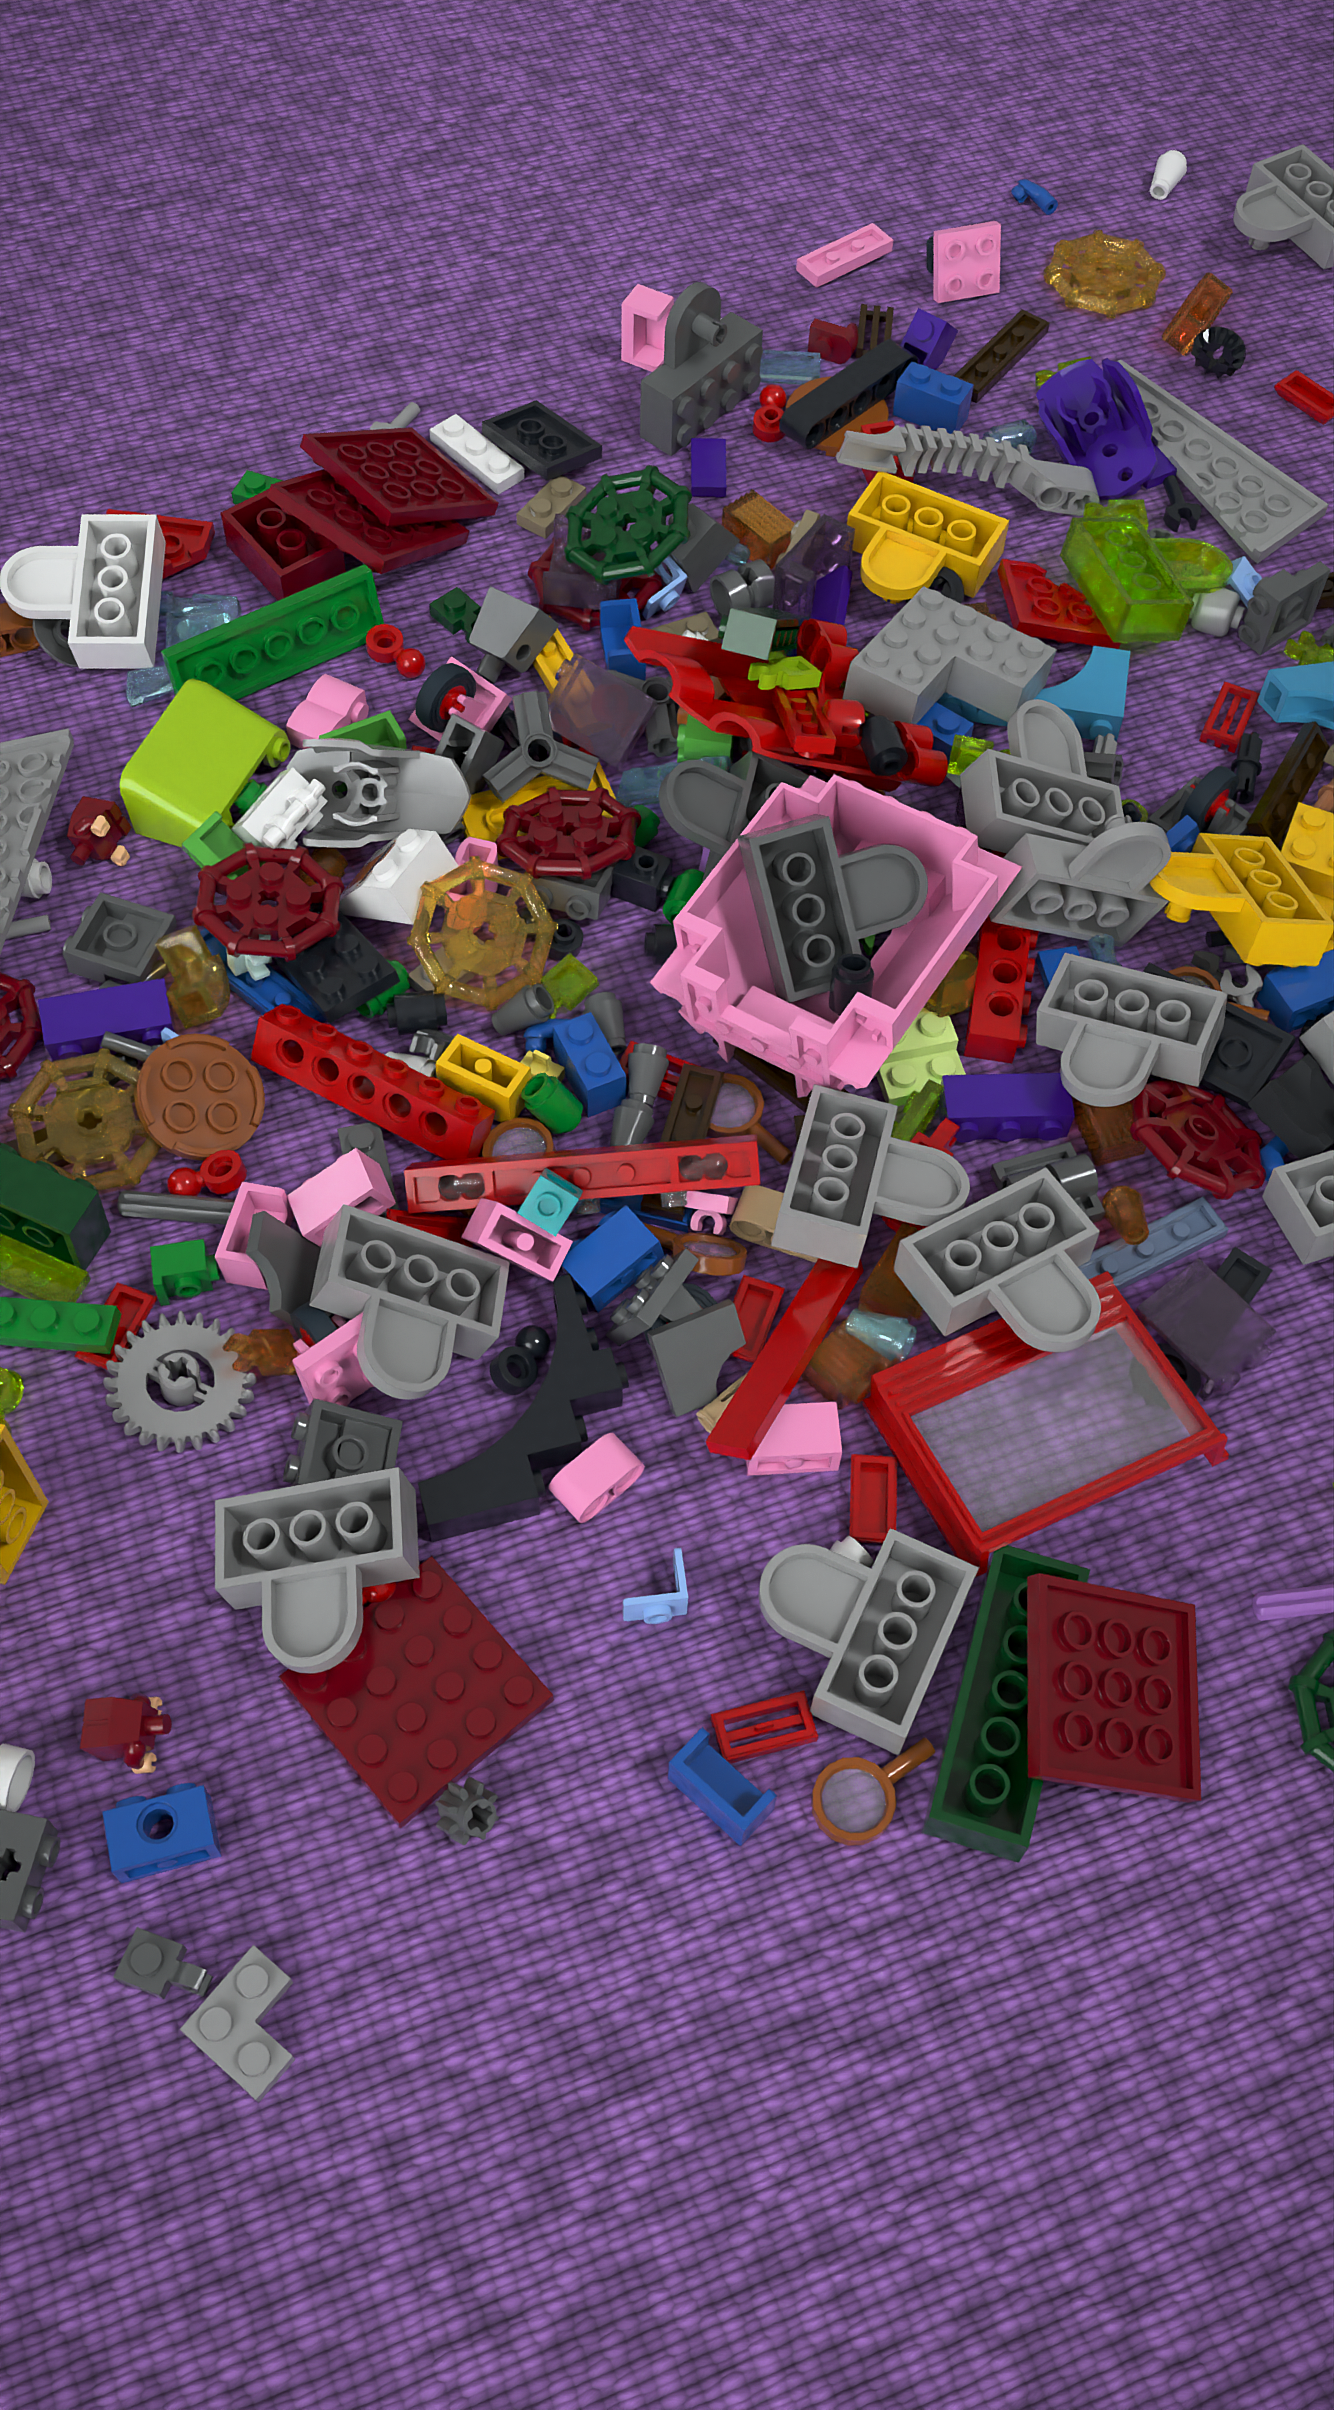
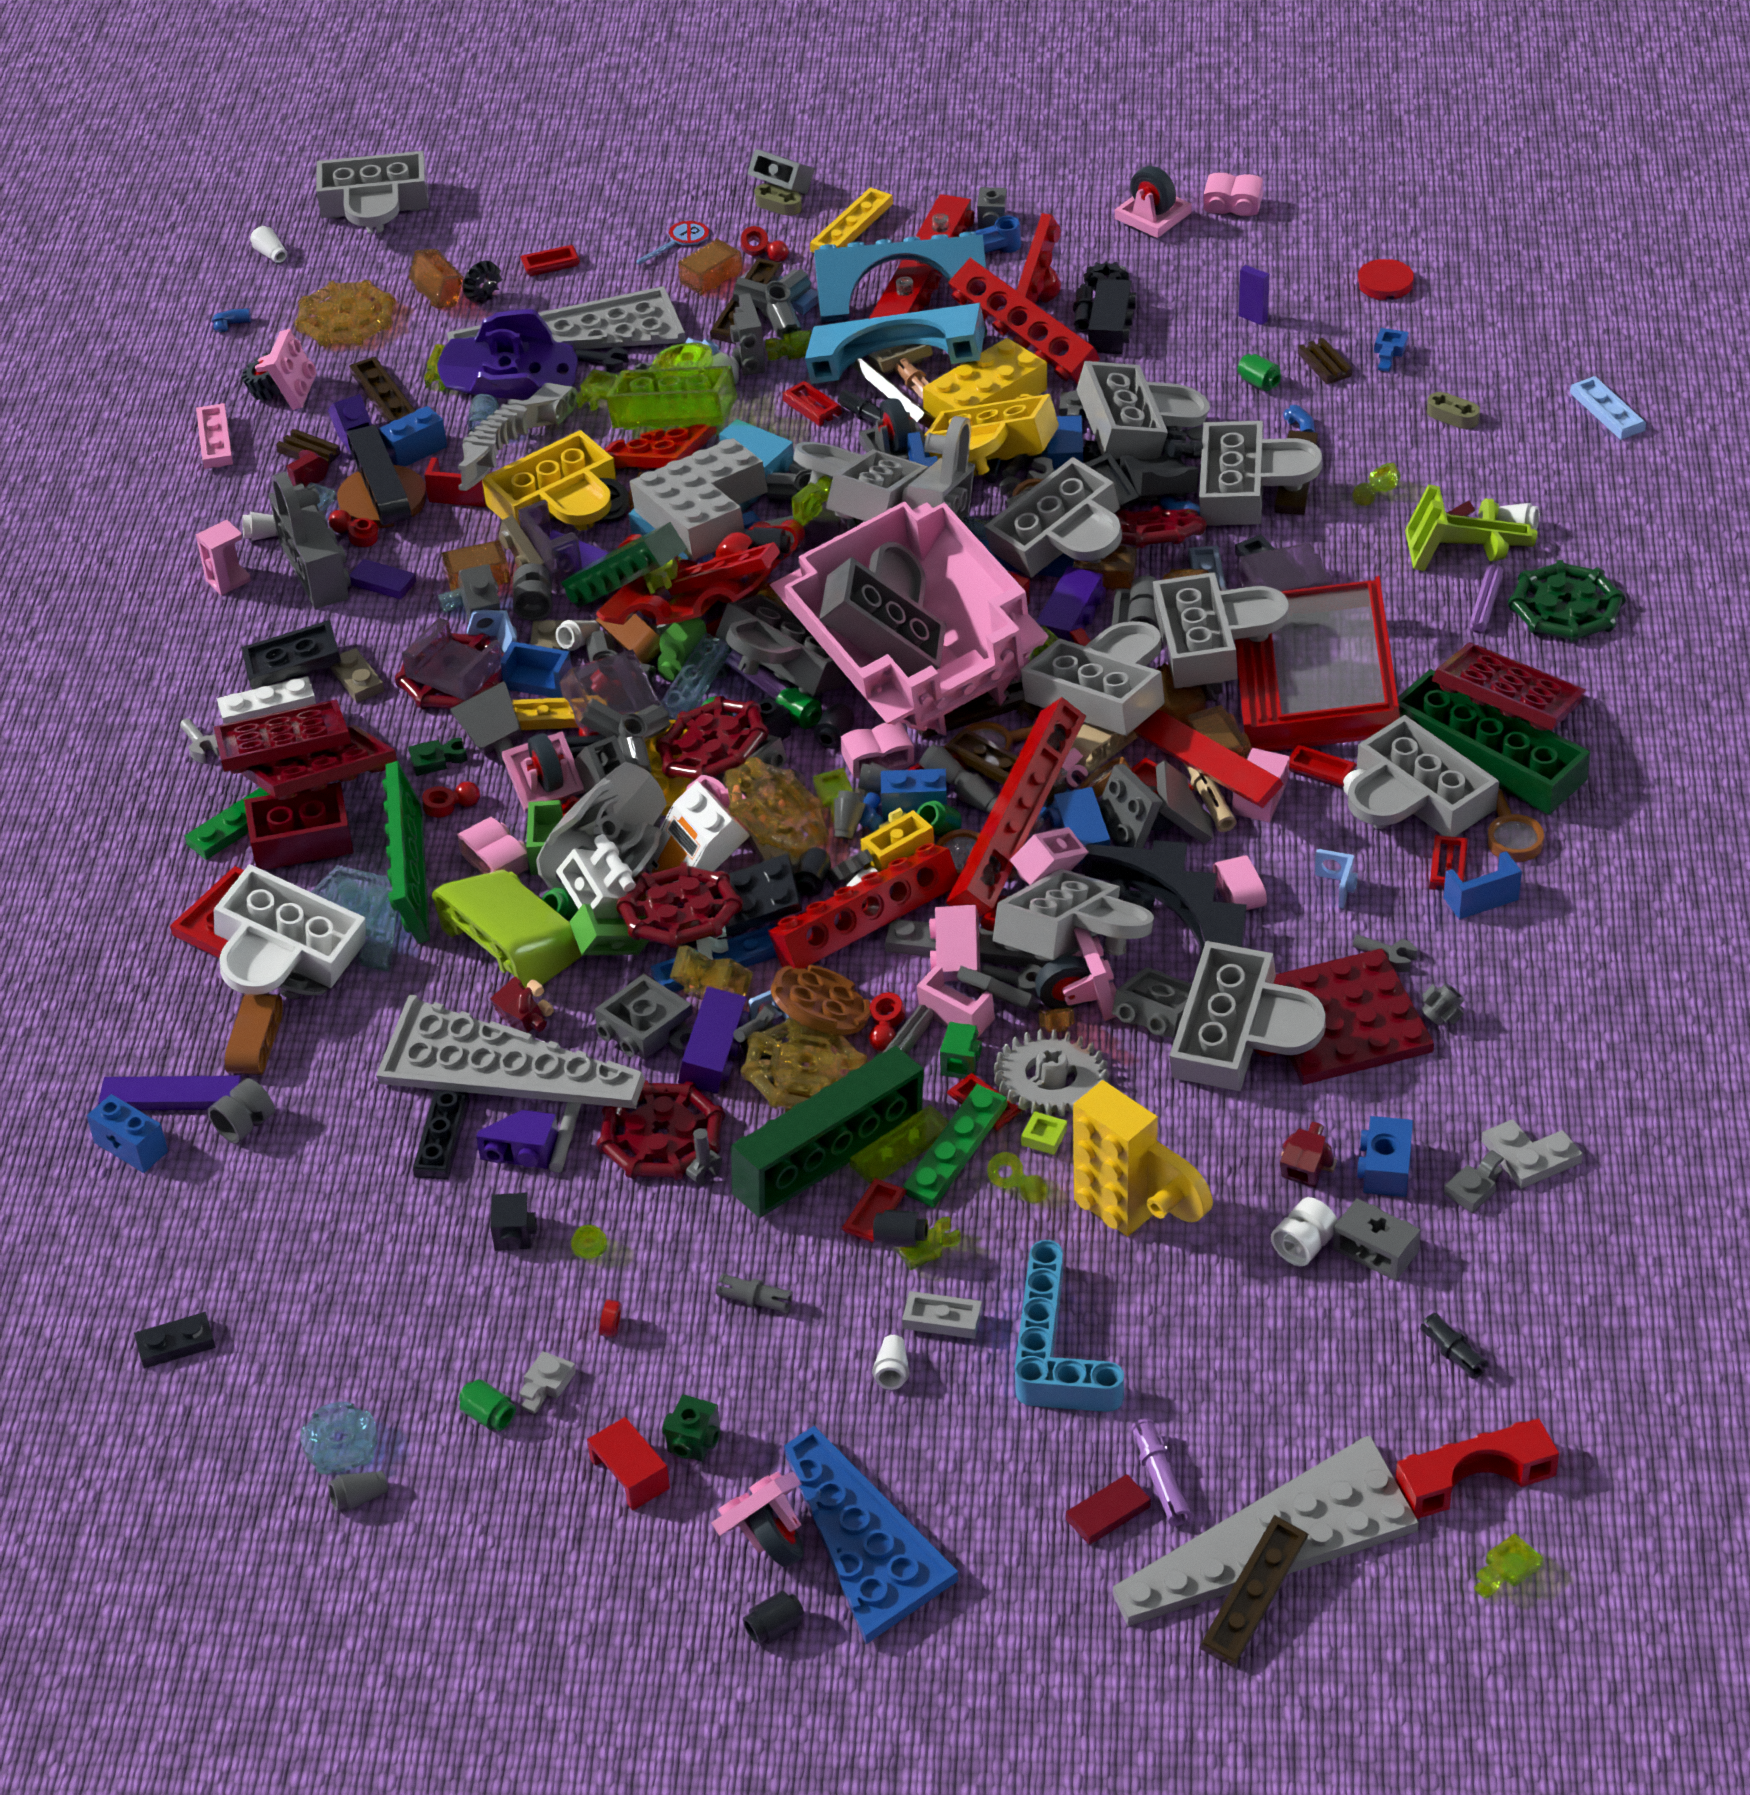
camera: 60 degrees left, 15 degrees down
(79, 1410) = (1044, 1133): none -> lime plate
(550, 1202) = (1040, 816): teal brick -> none
(558, 1705) = (1395, 953): none -> dark grey bar
(628, 550) = (454, 593): dark green plate -> none
(652, 1012) = (883, 745): none -> bright pink brick
(849, 976) = (955, 625): black brick -> none
(883, 1333) = (1220, 704): clear light blue cone -> none

